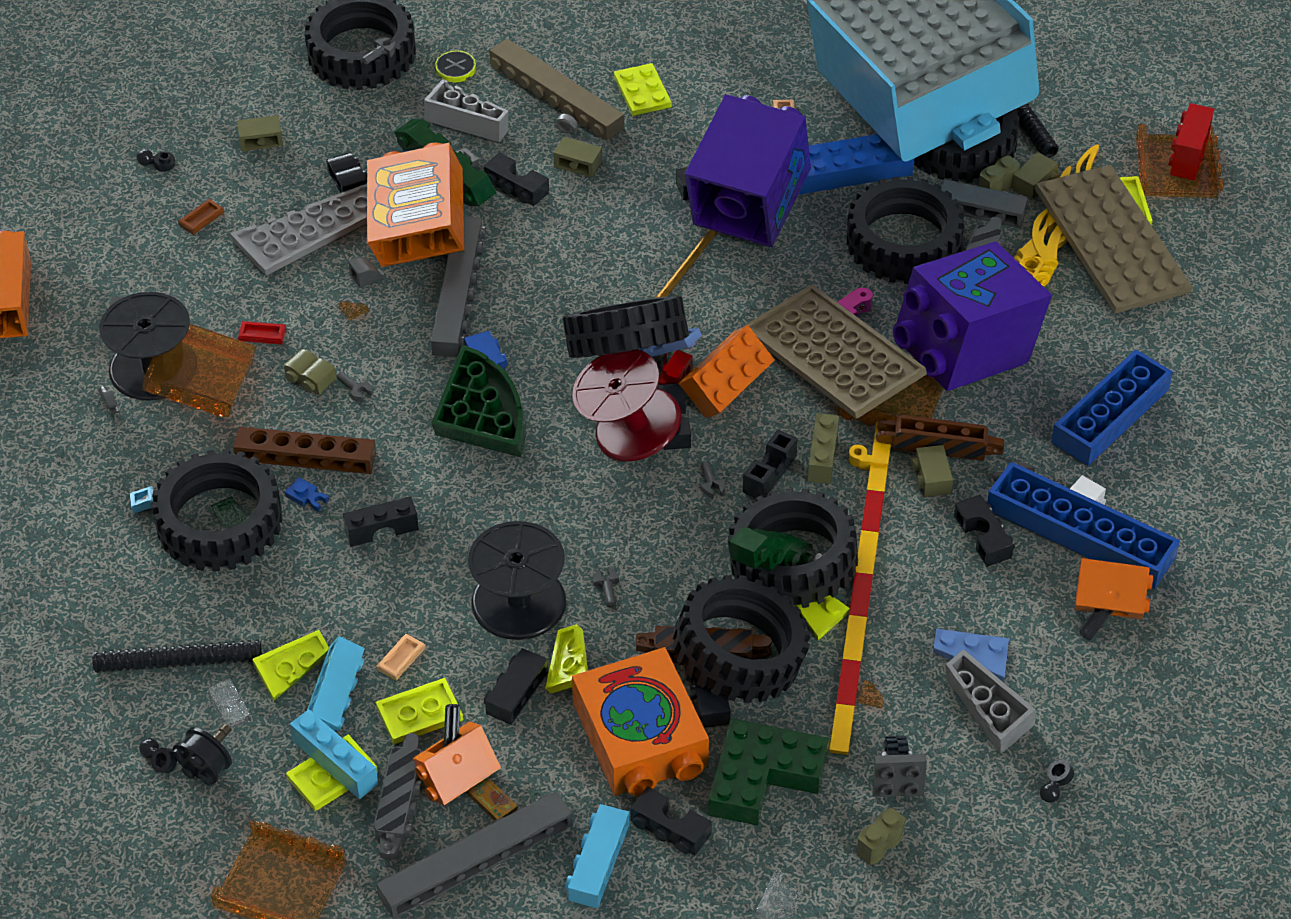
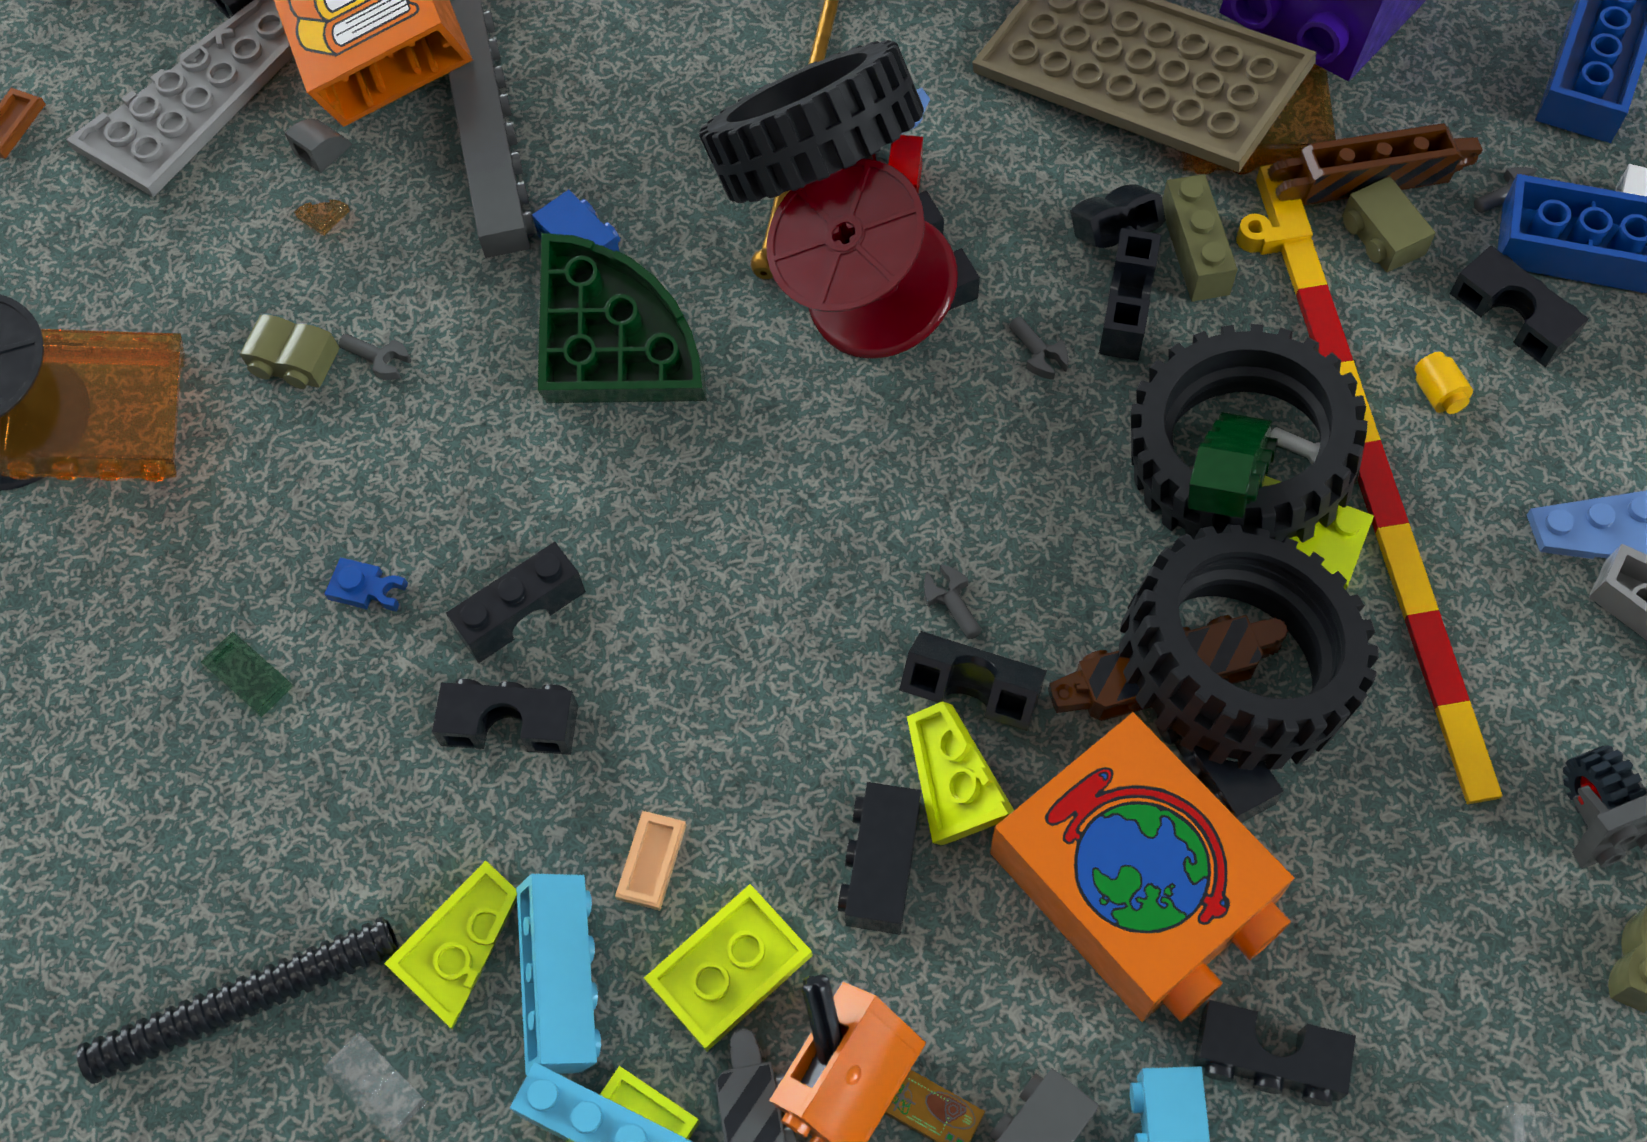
camera: 15 degrees left, 15 degrees up
(141, 499) = (73, 689): medium azure tile -> none
(224, 546) = (165, 611): black tyre -> none
(262, 332) = (181, 302): red tile -> none
(306, 450) = (229, 532): reddish brown brick -> none
(338, 563) = (469, 710): none -> black arch
(517, 580) = (810, 651): black piece -> none
(587, 612) = (948, 667): none -> black arch
(726, 371) = (989, 150): orange brick -> none
(760, 757) = (1365, 869): dark green brick -> none
(791, 422) = (1126, 207): none -> black brick
(870, 695) = (1483, 670): clear orange tile -> none
(921, 556) = (1443, 383): none -> yellow brick

